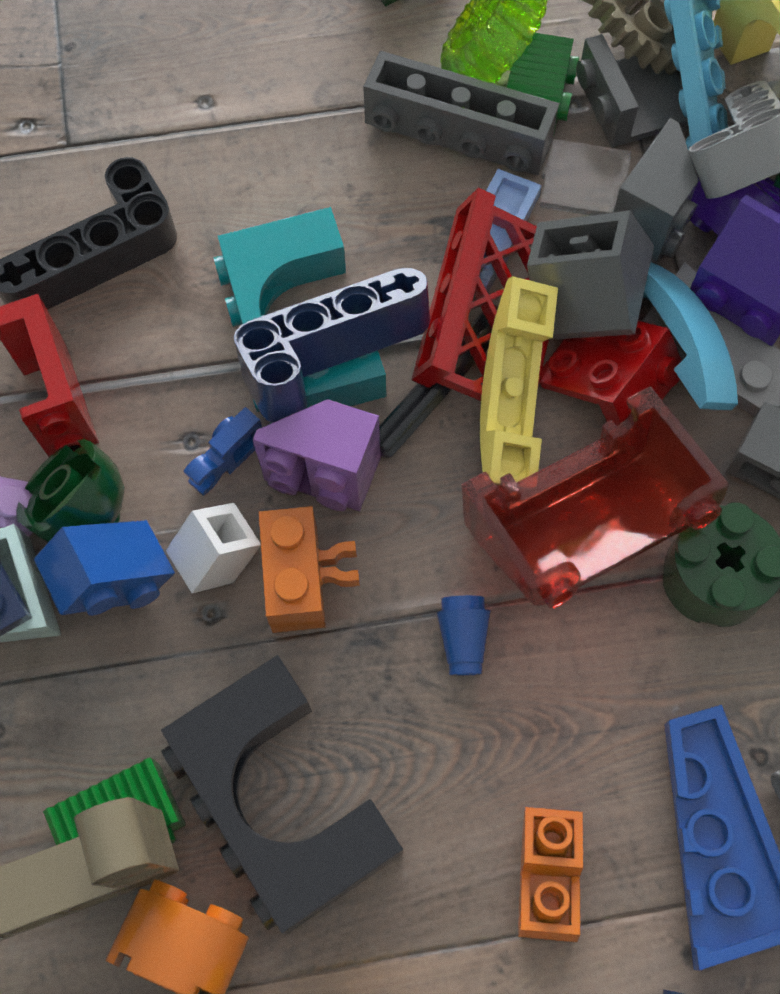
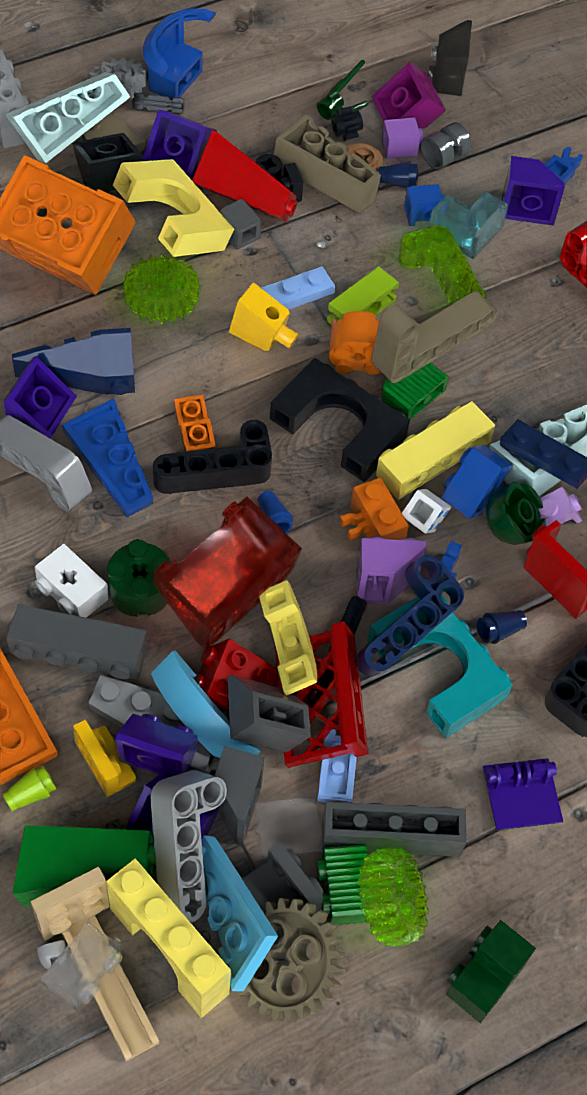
camera: 155 degrees right, 10 degrees down
(137, 668) = (434, 449): none -> light yellow brick
(184, 346) = (500, 625): none -> dark blue cone
(266, 133) = (523, 793): none -> dark purple hinge
(546, 761) = (176, 470): none -> black beam

